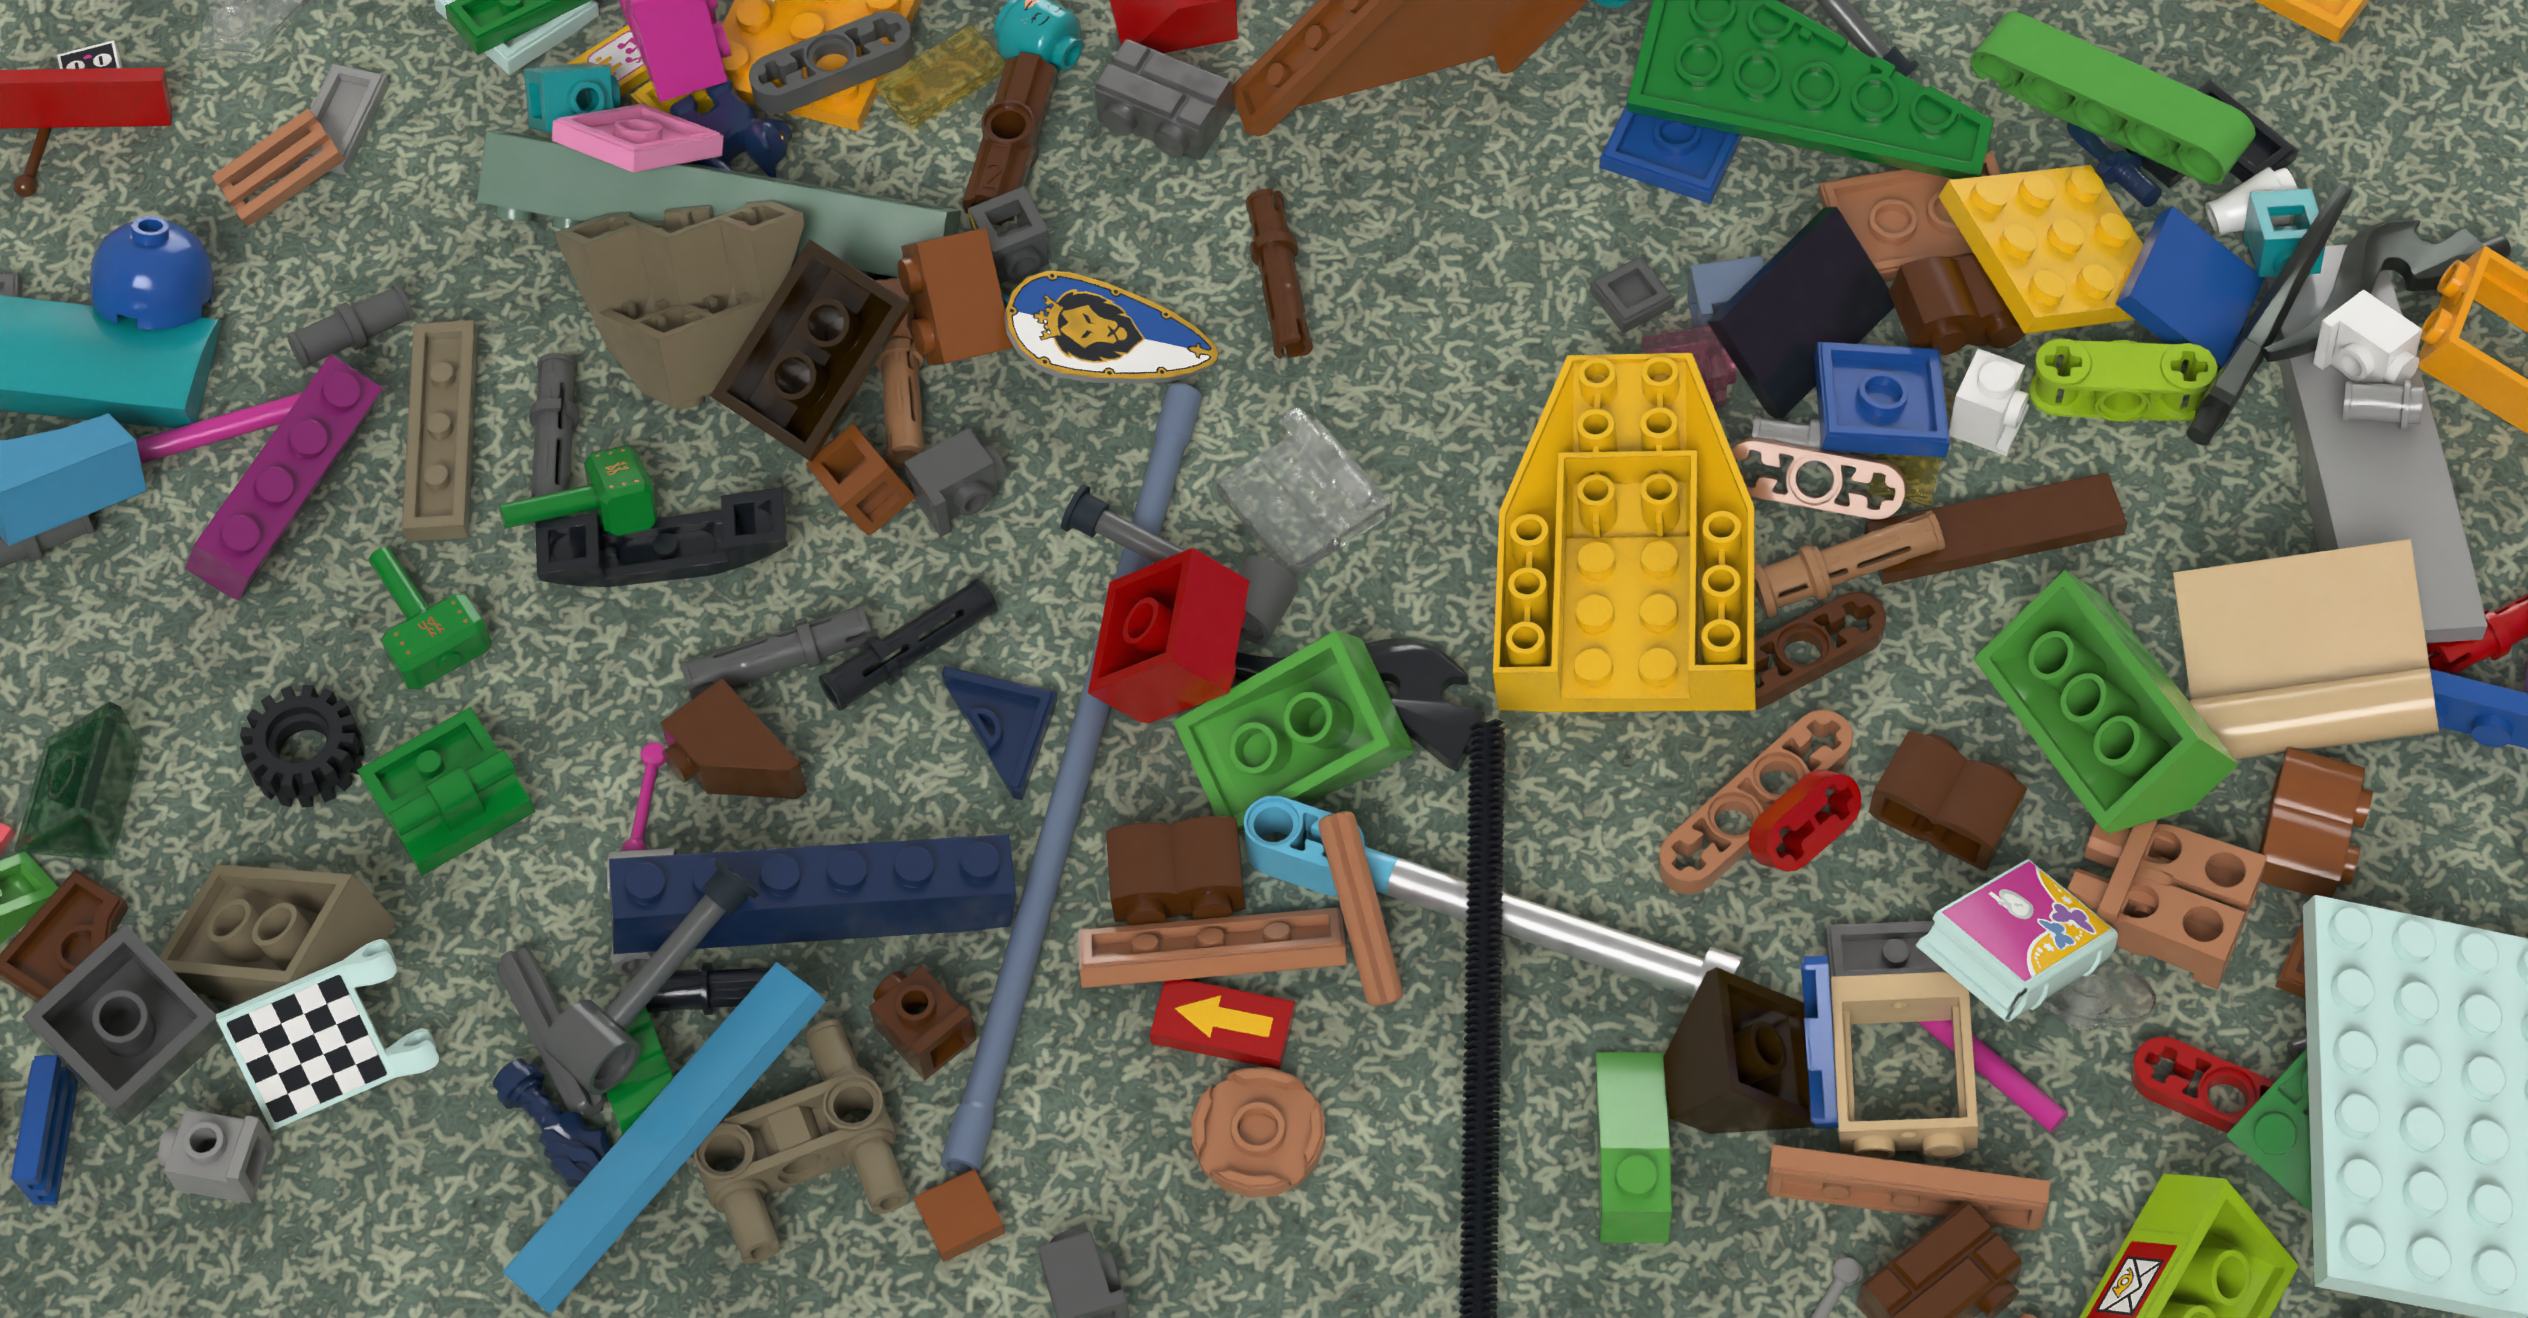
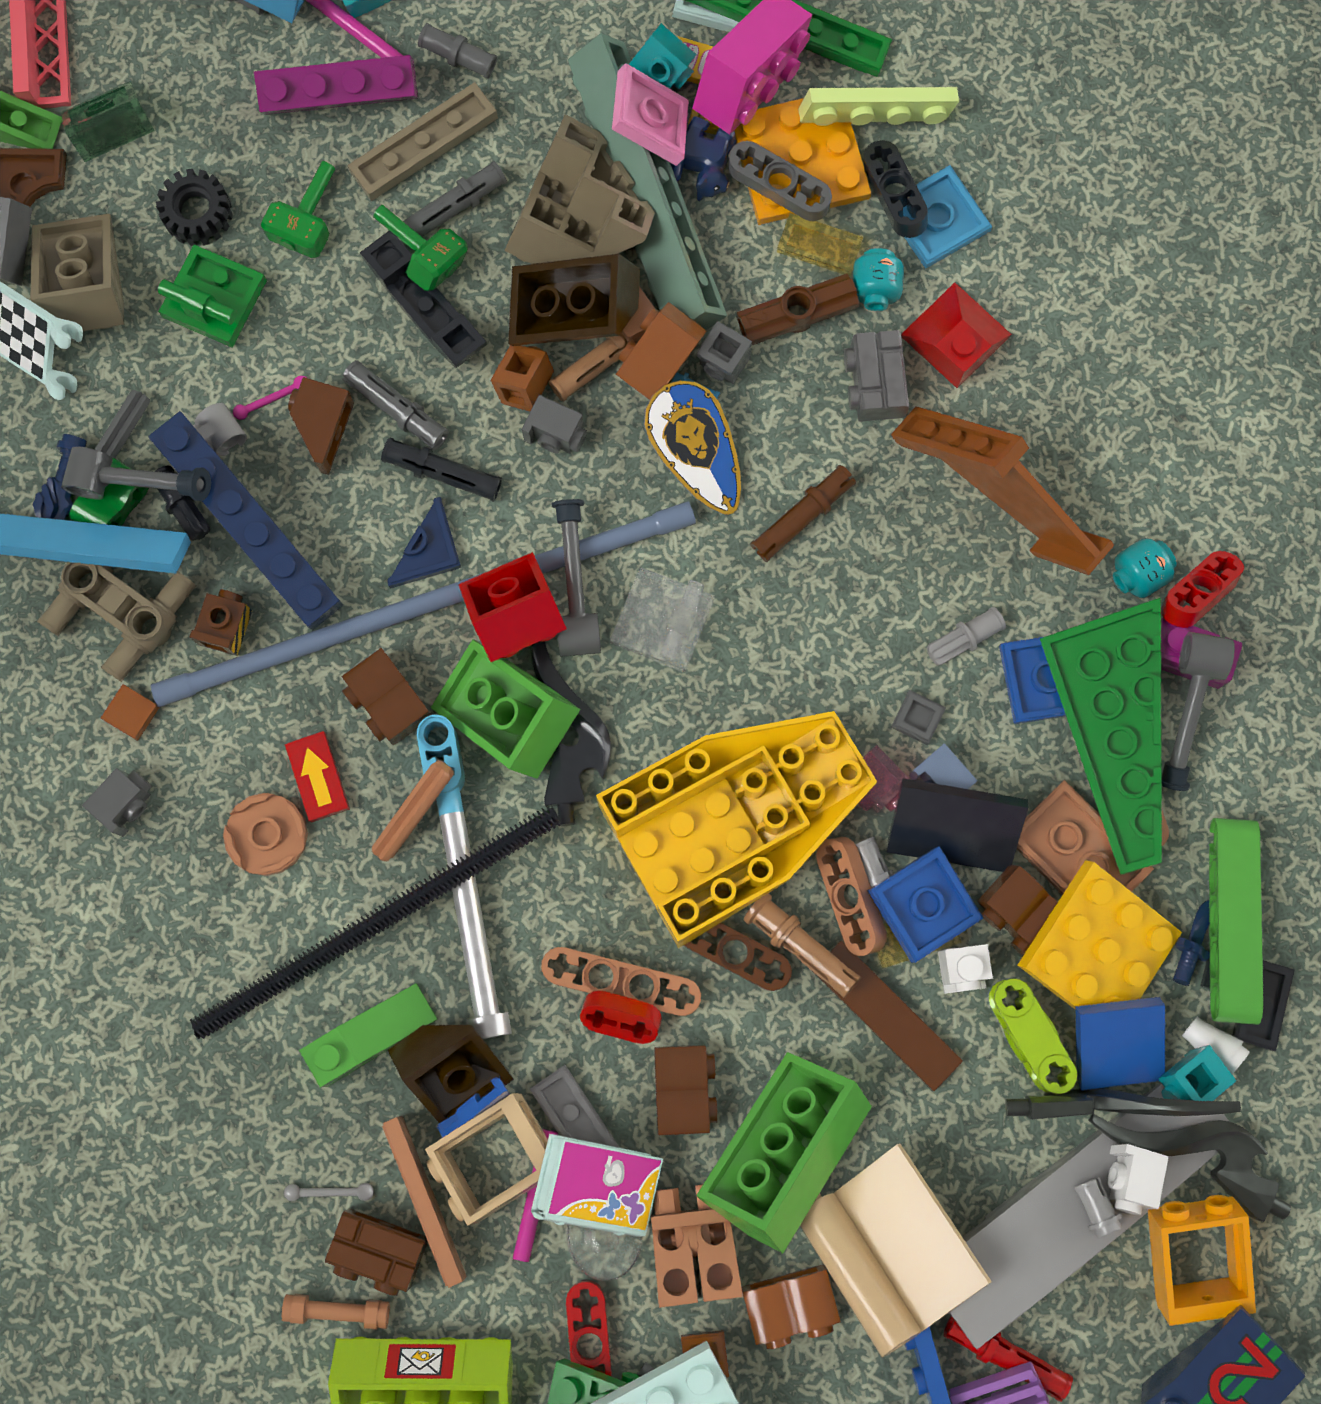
camera: 55 degrees right, 20 degrees up
(1211, 947) = (352, 743): nougat tile -> none
(1565, 187) = (966, 636): none -> light grey axle

